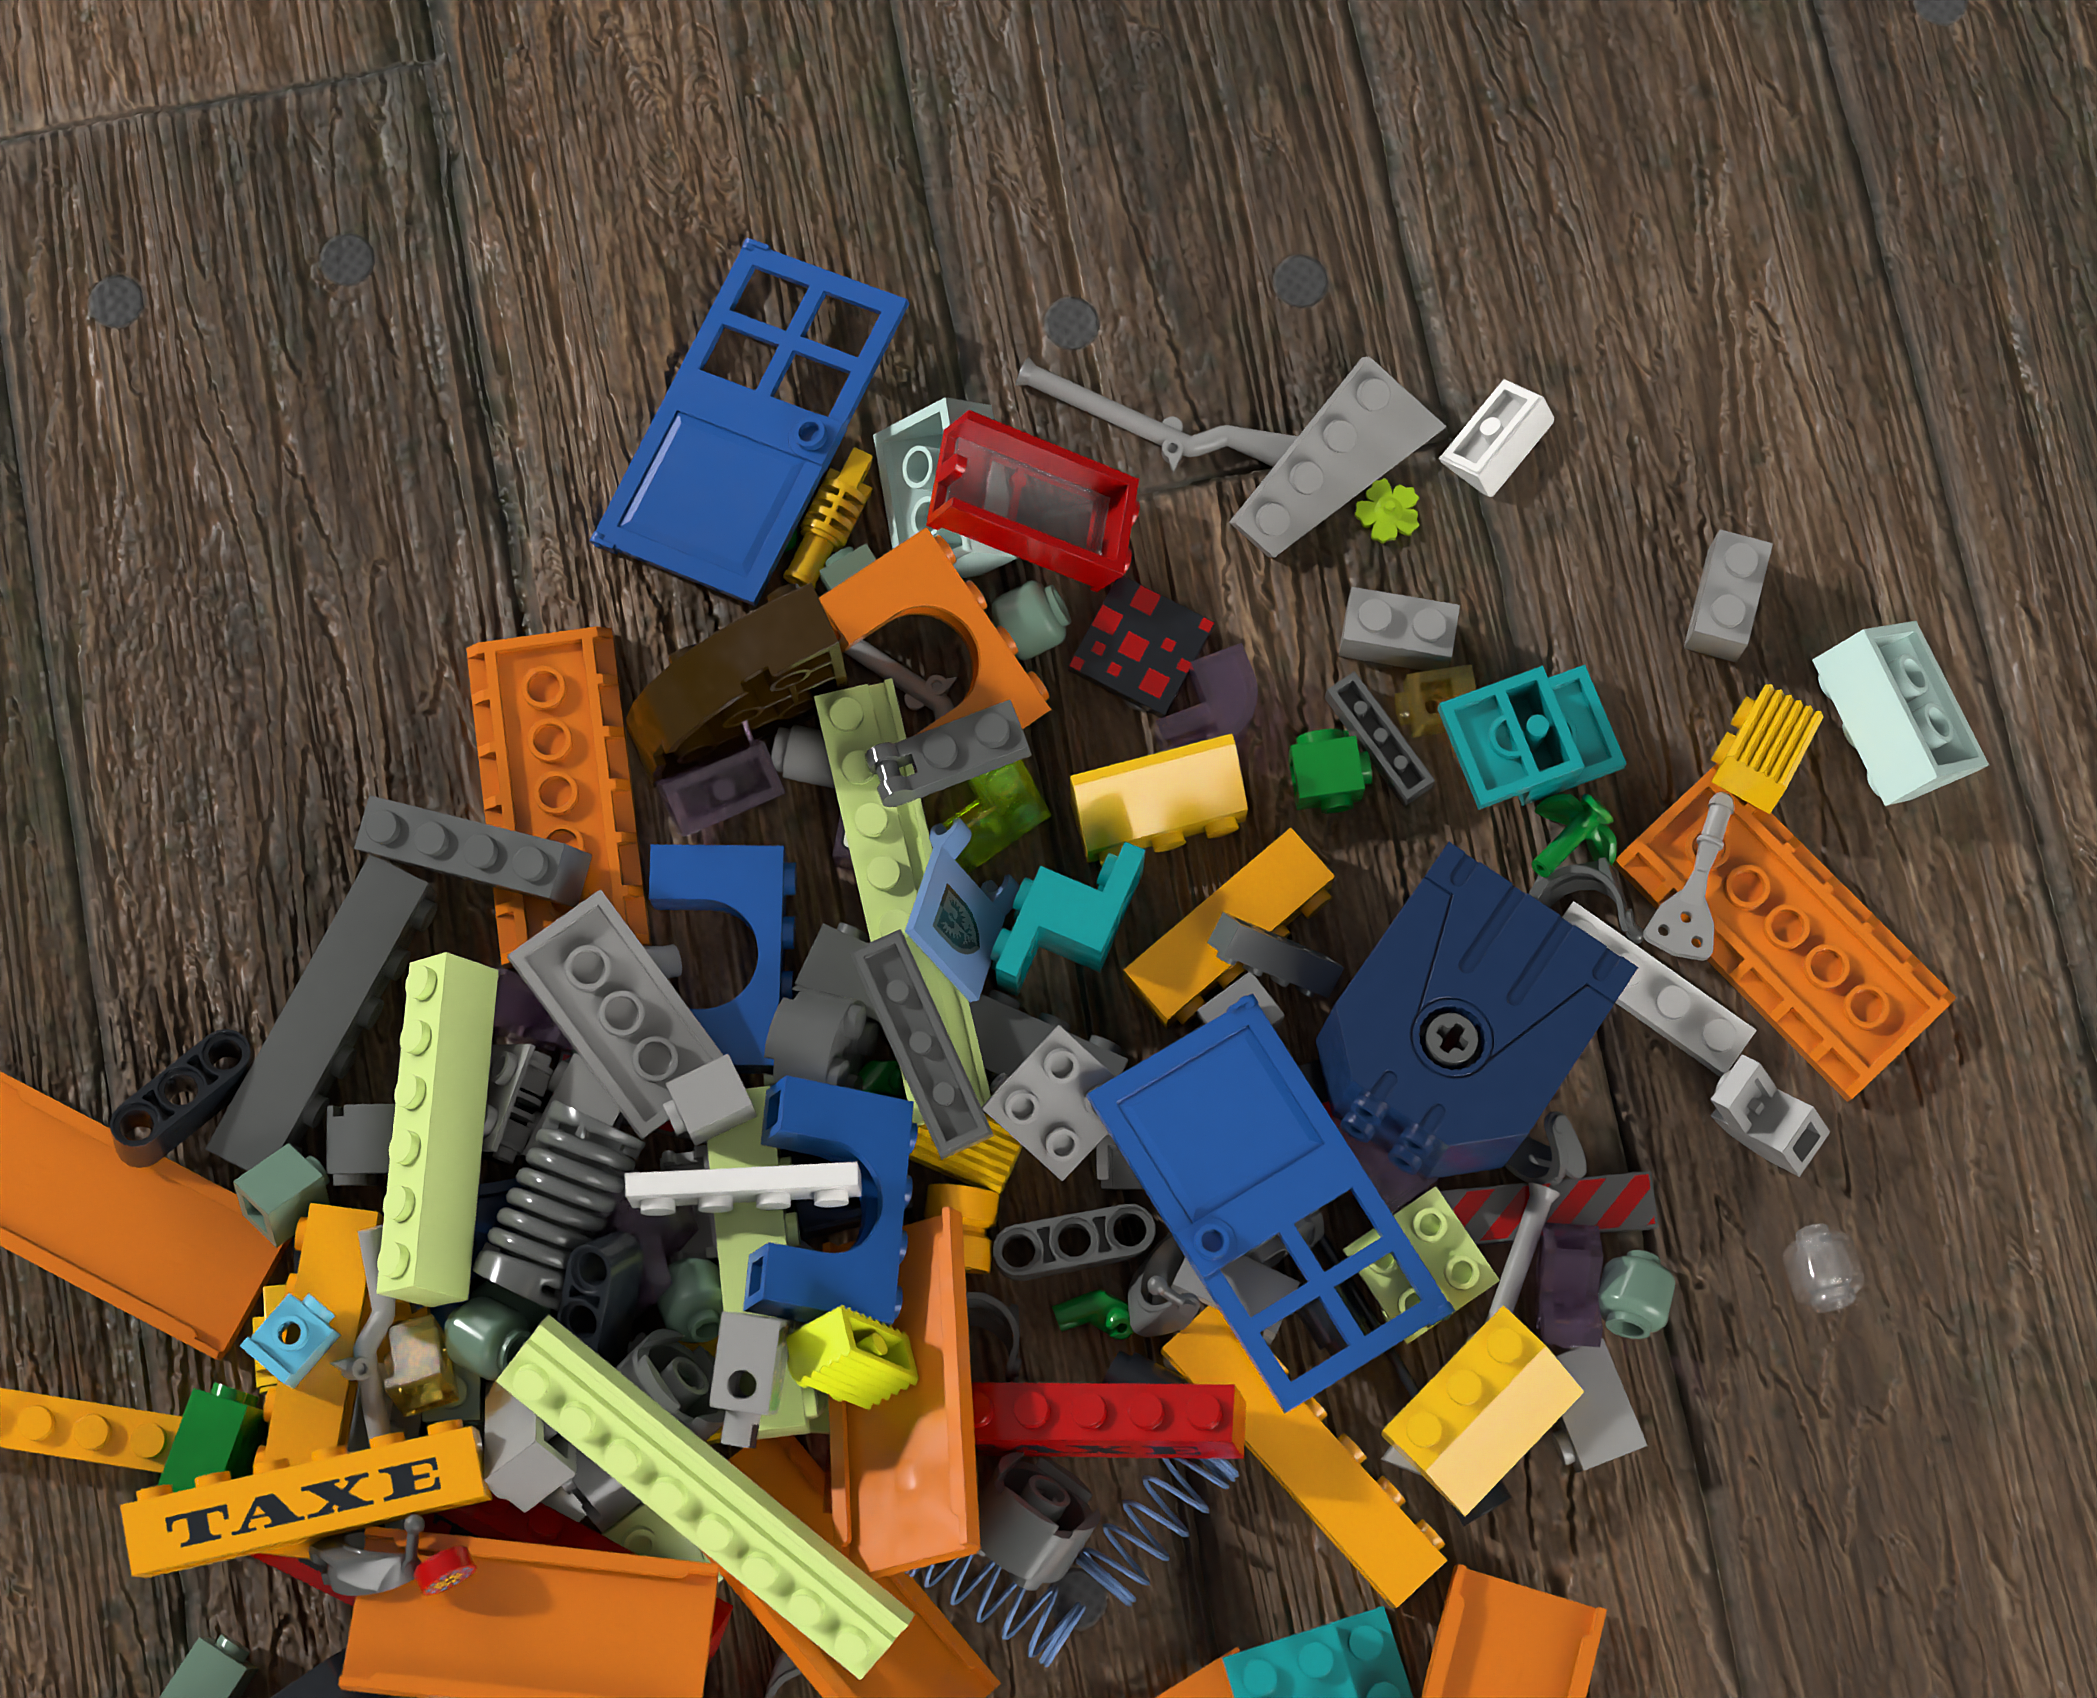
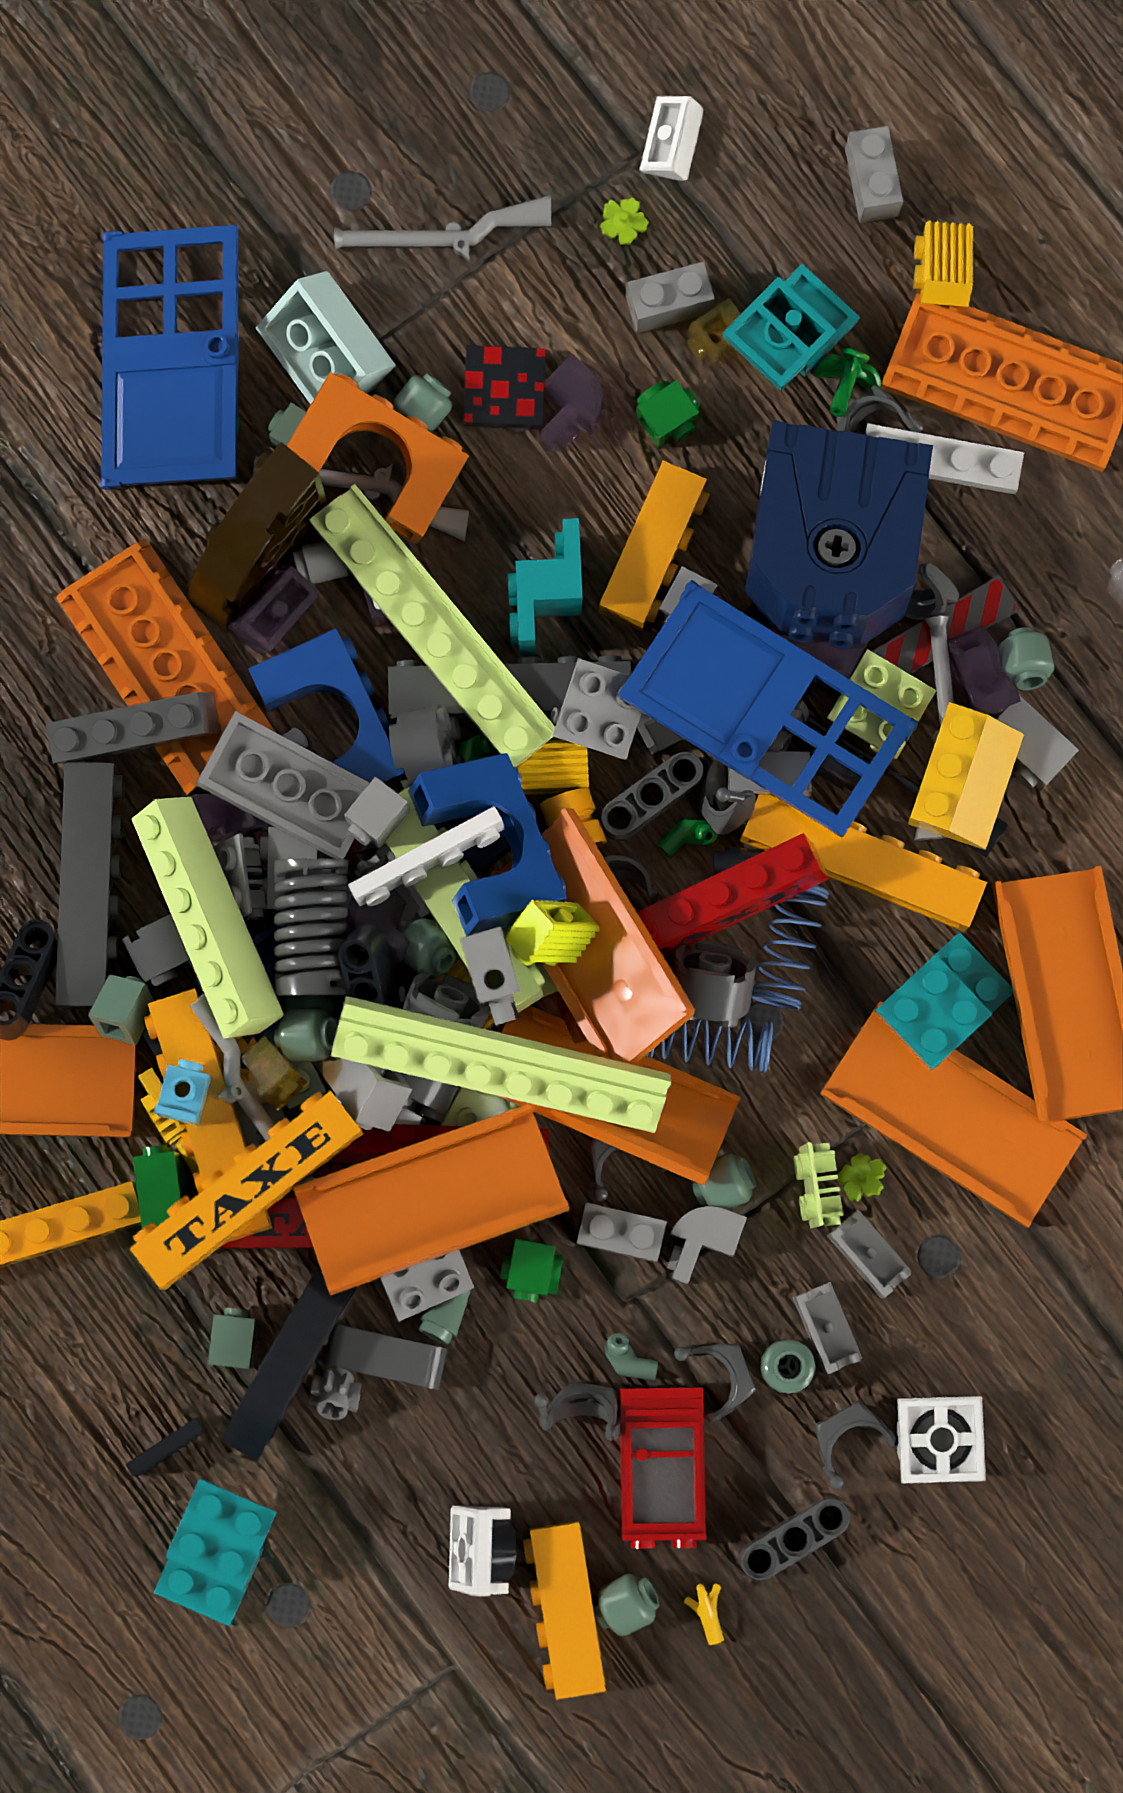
camera: 30 degrees left, 5 degrees up
(365, 1572) = (303, 1217): dark grey helmet -> none
(444, 1570) = (359, 1189): red tile -> none
(830, 518) = (256, 398): yellow hinge -> none
(921, 1044) = (494, 713): dark grey tile -> none
(948, 754) = (419, 515): dark grey plate -> none
(954, 917) = (473, 619): medium blue flag -> none
(1003, 812) = (468, 537): clear neon green plate -> none
(1034, 500) = (390, 321): red door -> none
(1160, 799) = (568, 482): yellow slope -> none
(1274, 955) = (693, 548): dark grey piece -> none
(1342, 451) = (574, 194): light grey wing -> none
(1380, 737) = (689, 373): dark grey piece -> none
(1692, 898) = (943, 385): light grey piece -> none
(1767, 1118) = (1057, 506): light grey brick -> none
(1899, 711) = (1019, 200): light aqua slope -> none

